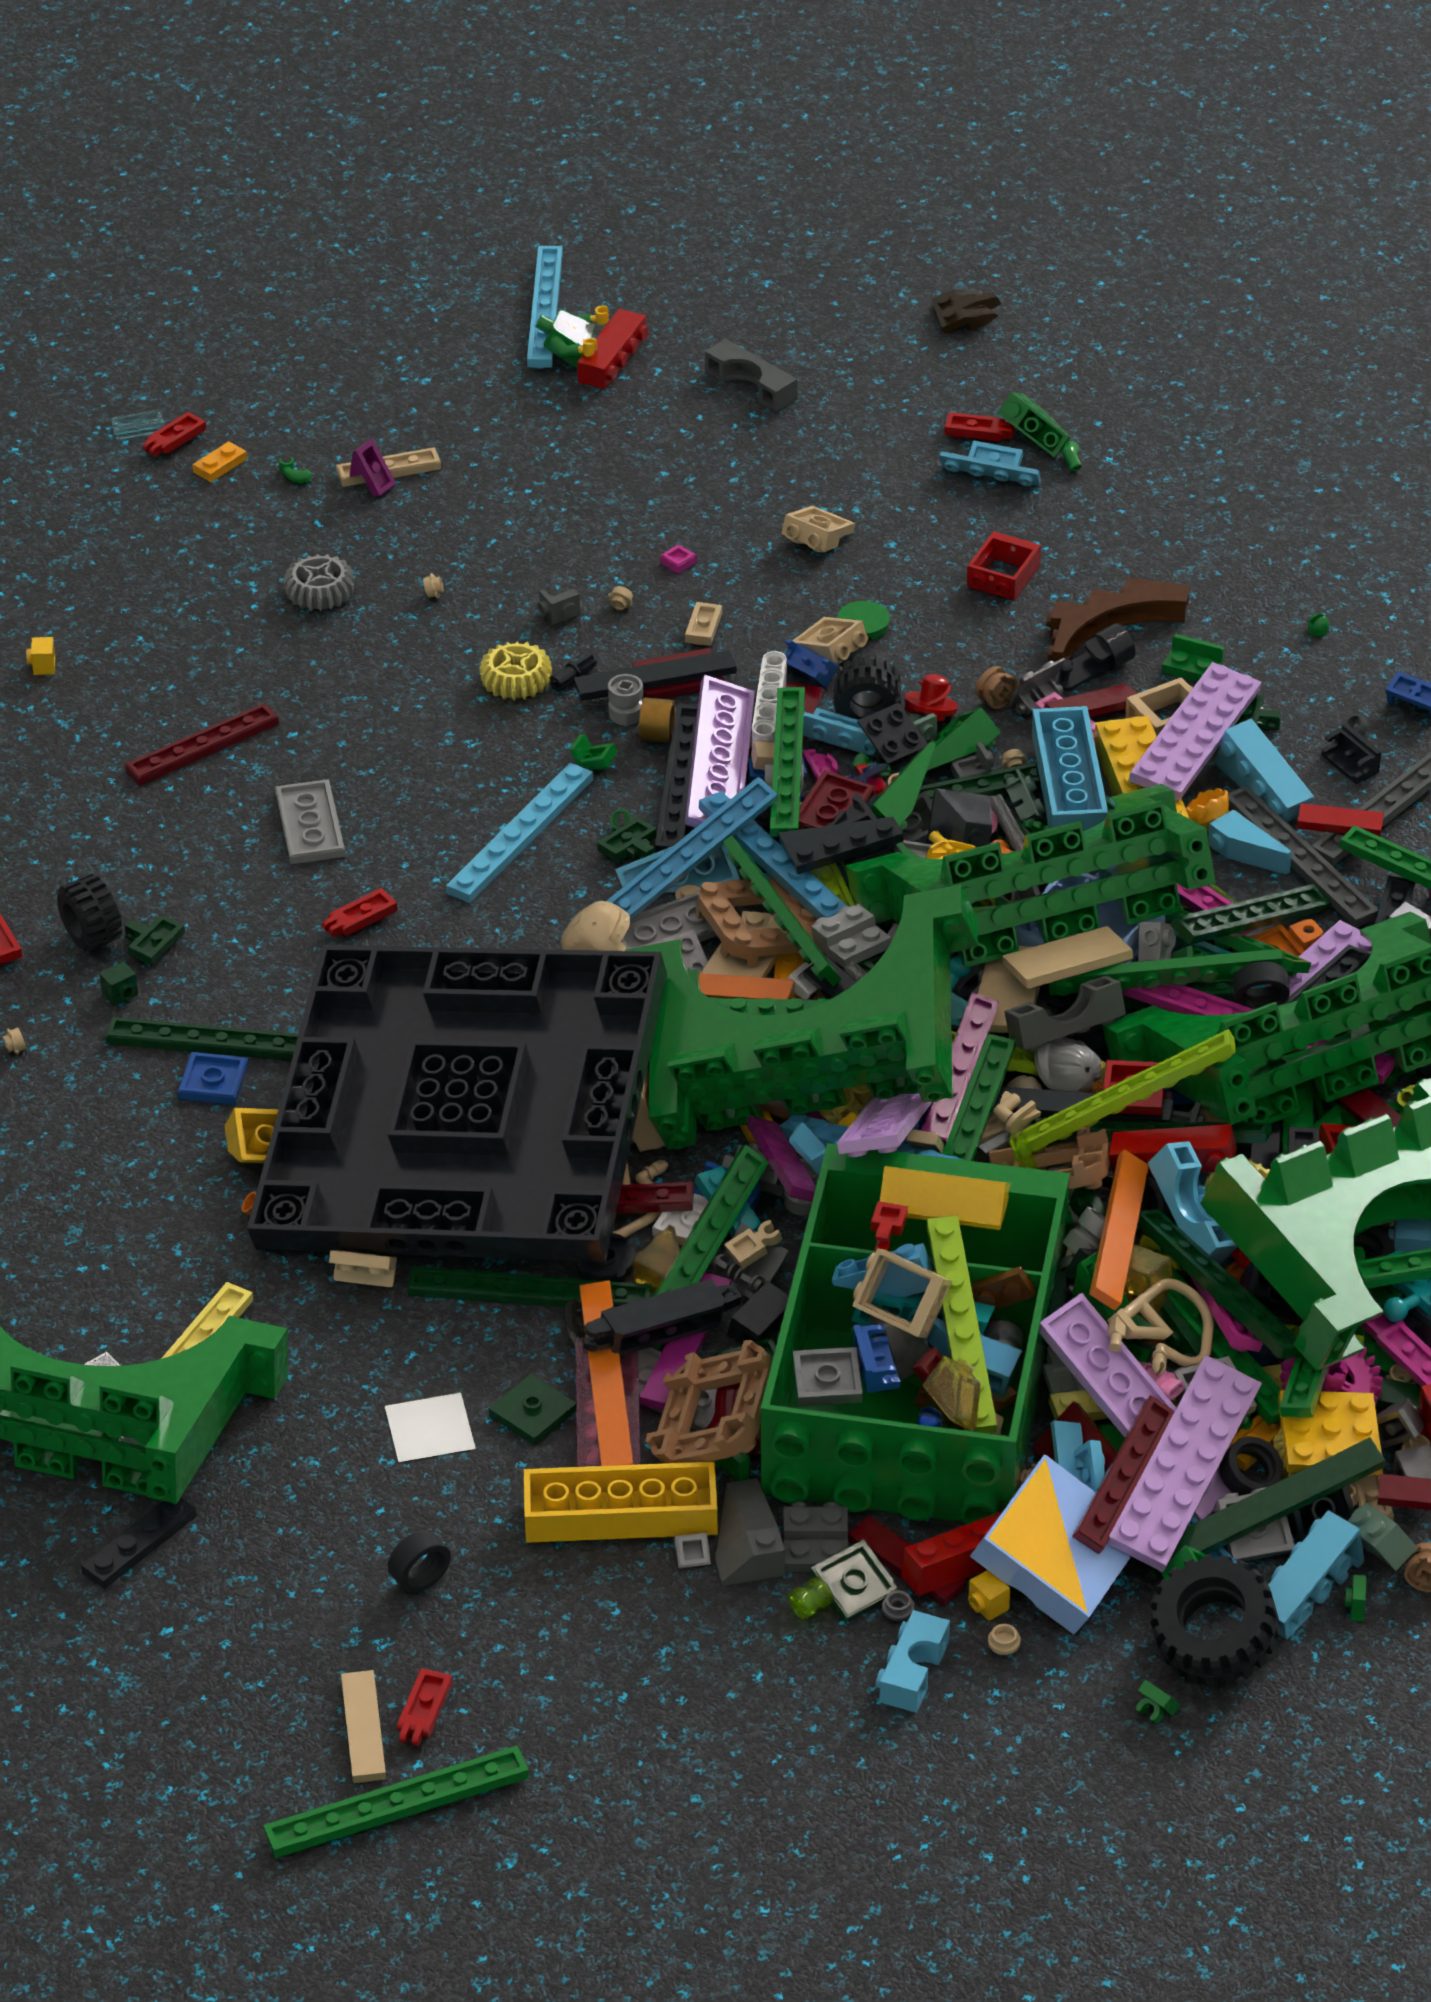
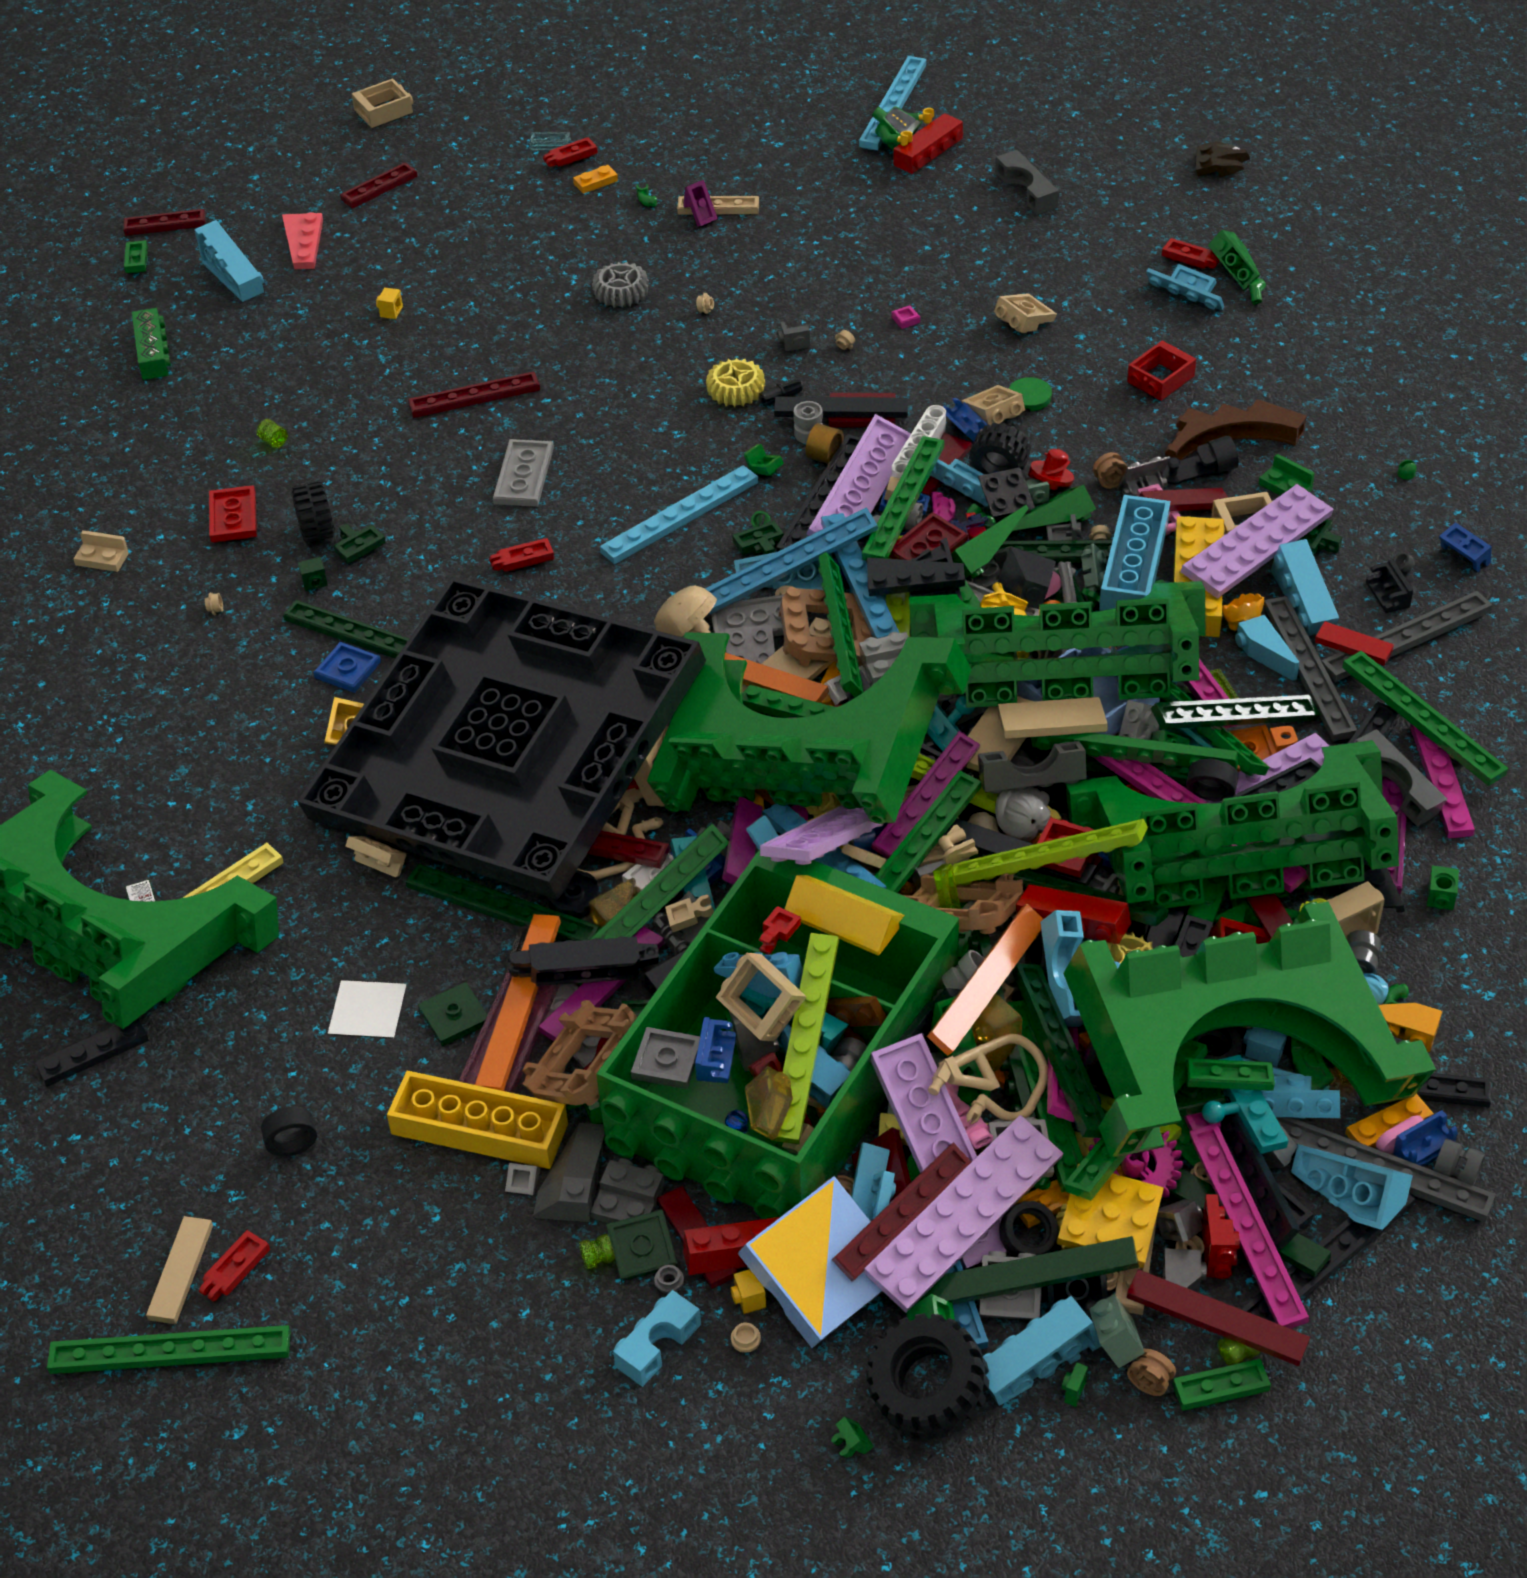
camera: 20 degrees right, 5 degrees up
(703, 623) = (900, 372): tan plate -> none

